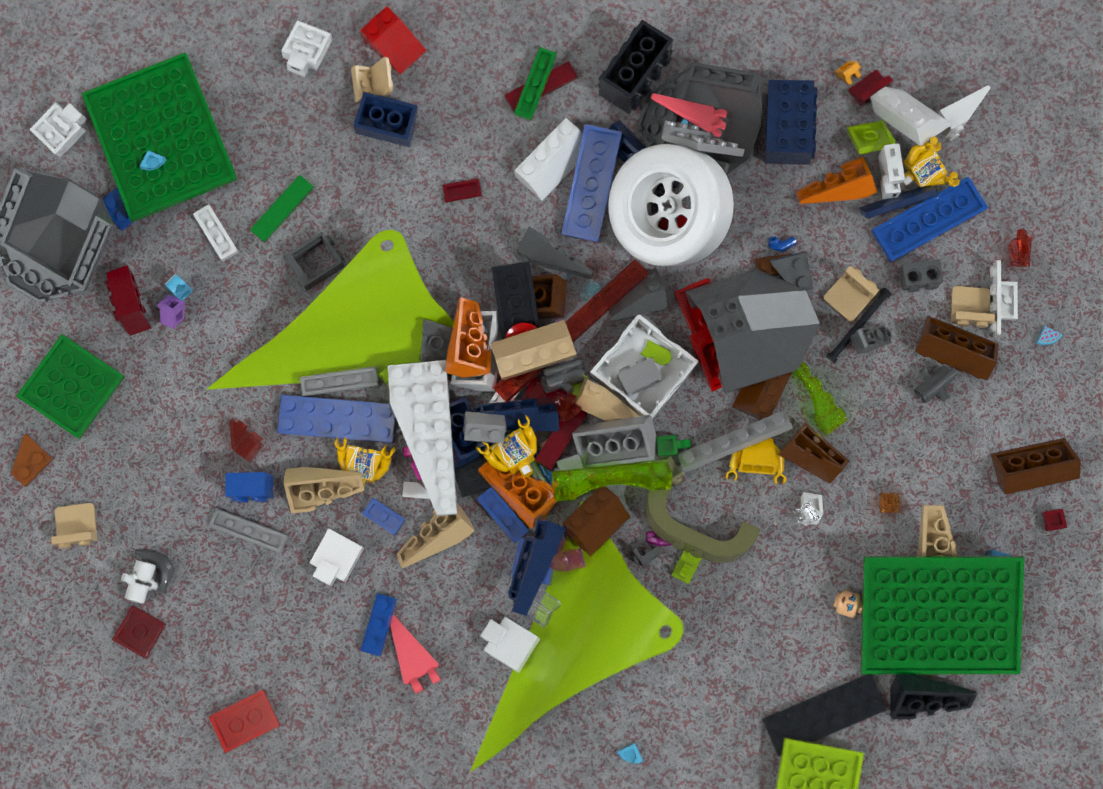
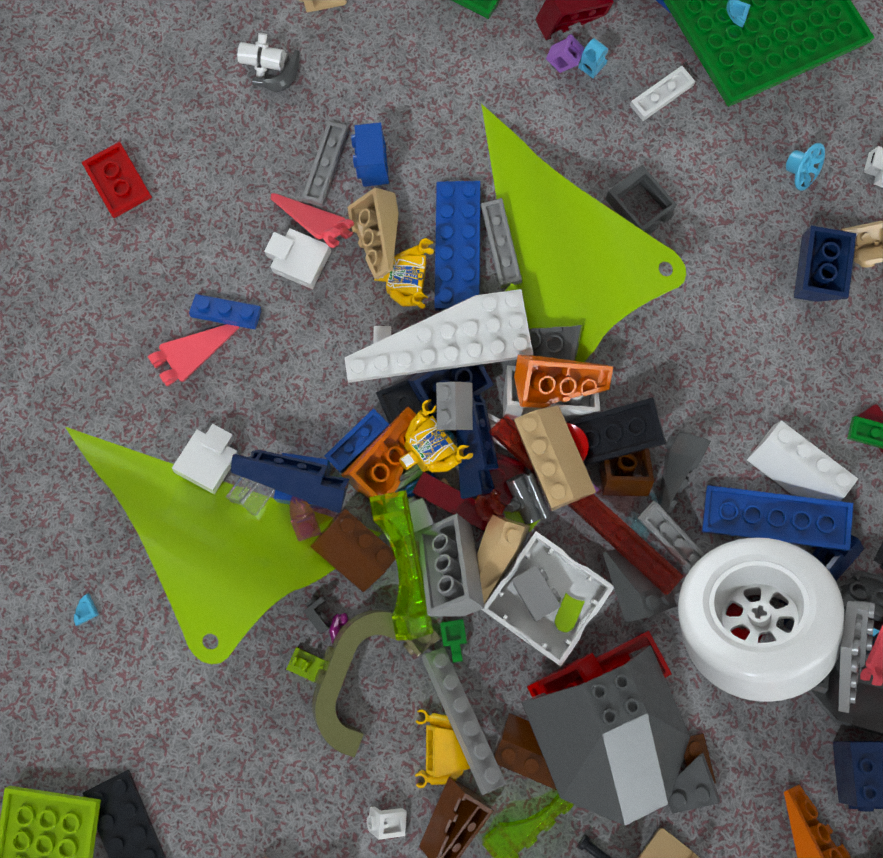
camera: 90 degrees right, 0 degrees up
(139, 632) = (210, 64): dark red tile -> none
(243, 442) = (423, 145): clear red slope -> none
(282, 208) = (700, 162): green tile -> none
(295, 125) = (803, 163): none -> medium azure wheel
(302, 541) = (316, 221): none -> coral flag
(384, 516) = (348, 306): blue plate -> none
(436, 536) = (327, 367): tan wedge -> none
(462, 190) = (747, 363): dark red tile -> none
(602, 265) = (670, 535): none -> light grey tile
(781, 246) = (724, 767): blue arm -> none
(799, 517) = (371, 808): clear panel -> none

